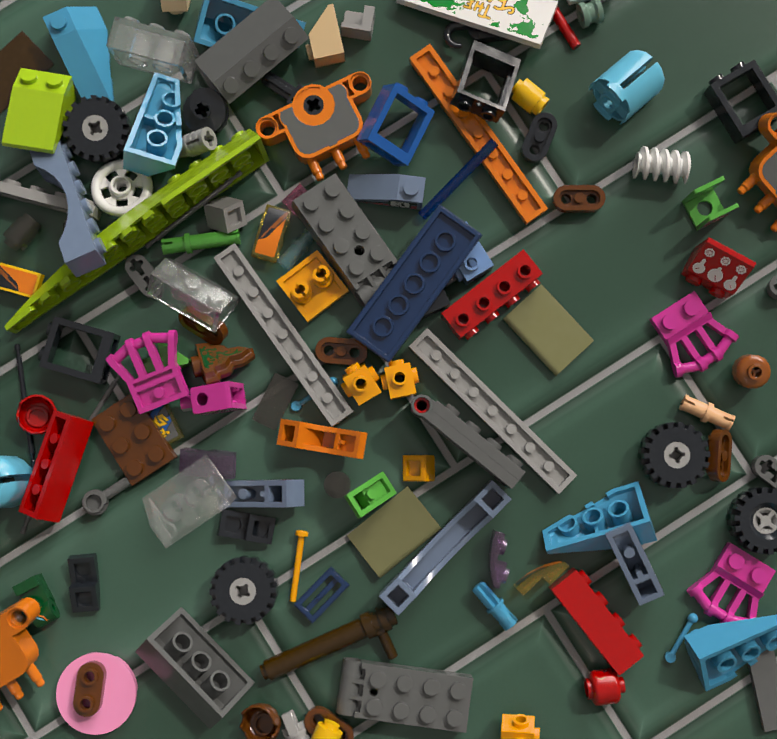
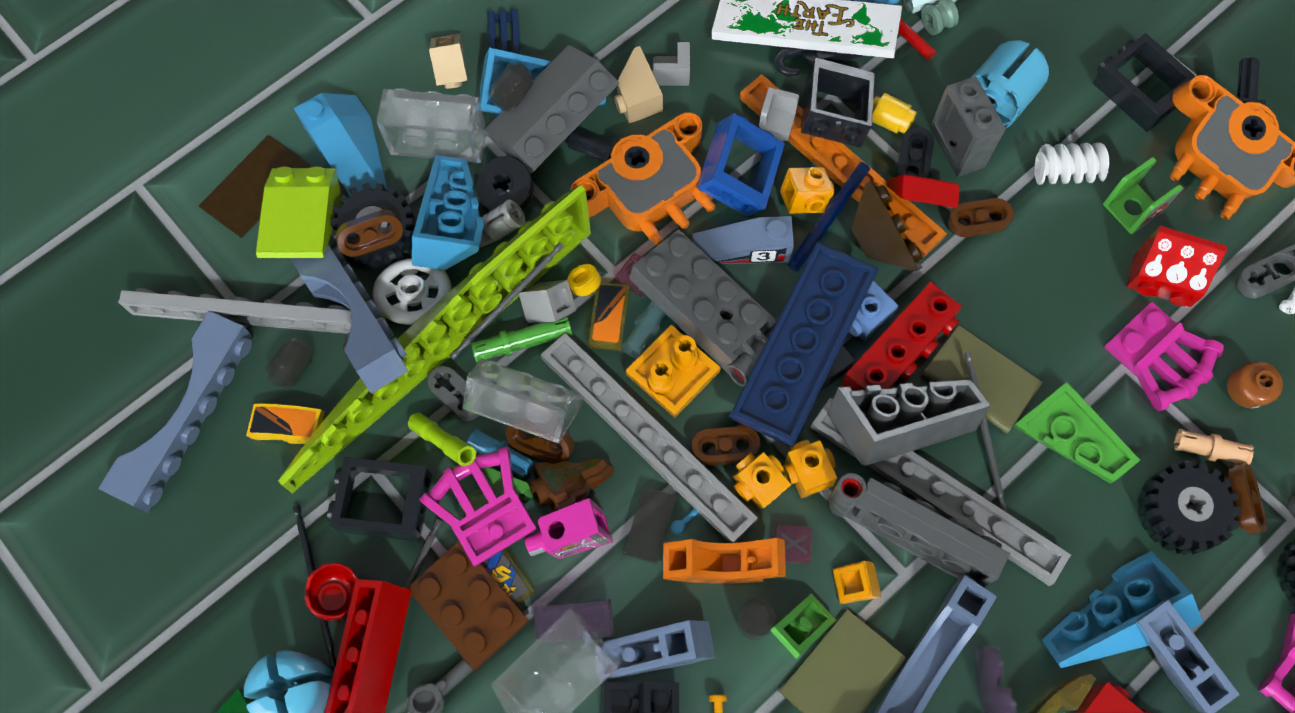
camera: 10 degrees left, 15 degrees down
(91, 140) = (370, 236): none -> reddish brown plate
(133, 322) = (451, 445): none -> lime piece
(165, 324) = (485, 444): none -> dark azure axle
(220, 28) = (511, 86): none -> clear smoke brick
(256, 200) = (584, 280): none -> yellow tile
(378, 432) = (797, 543): none -> clear pink tile
(433, 85) = (779, 113): none -> light grey panel
(445, 154) = (806, 190): none -> light orange brick
(470, 356) = (905, 418): none -> dark grey wedge
(496, 201) = (882, 232): none -> dark brown slope
(537, 172) = (925, 190): none -> red slope
(539, 374) = (987, 439): none -> dark grey piece
(583, 113) = (973, 132): none -> dark grey window
(608, 385) = (1079, 434): none -> bright green wing

